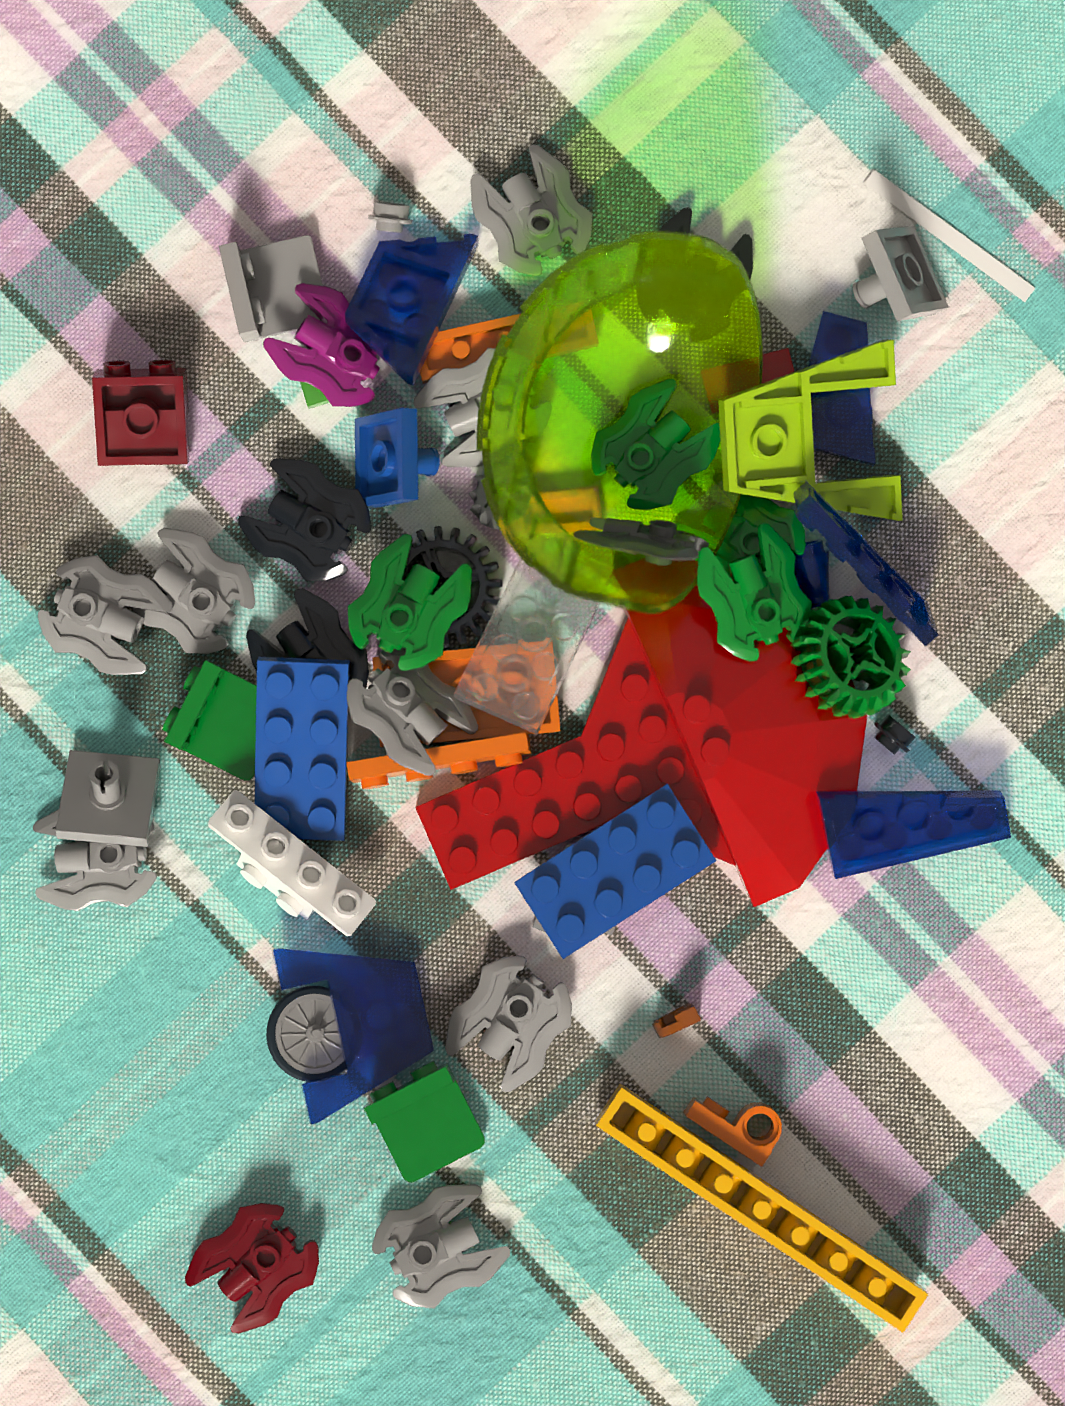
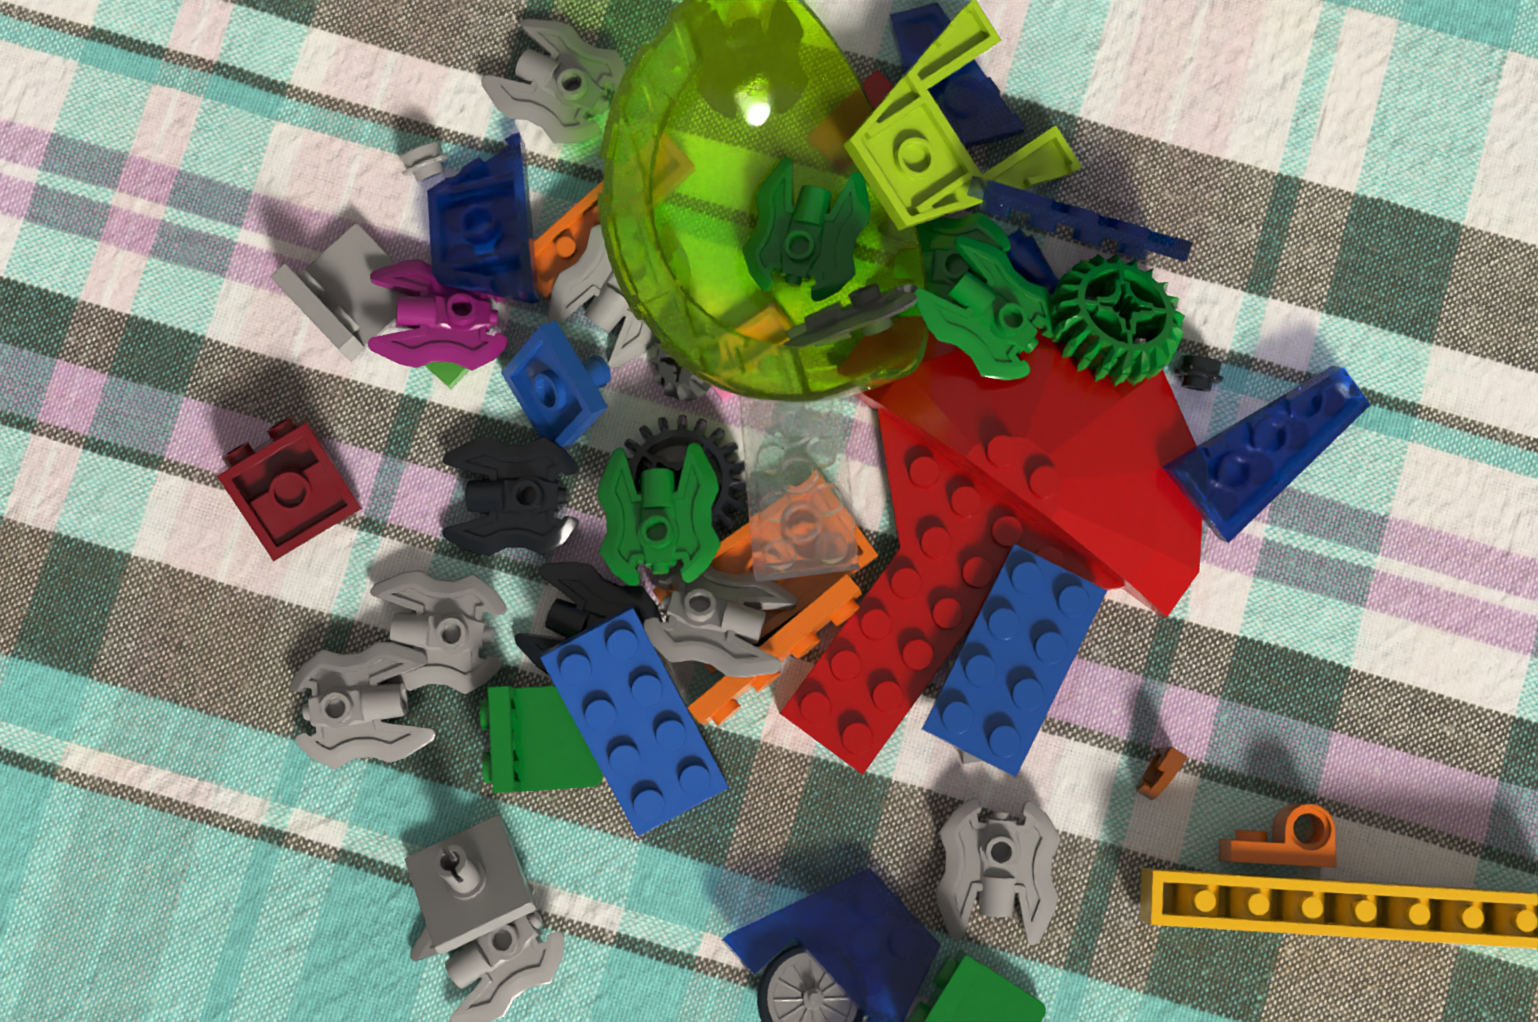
camera: 30 degrees left, 5 degrees down
(289, 867) = (690, 845): white bracket -> none

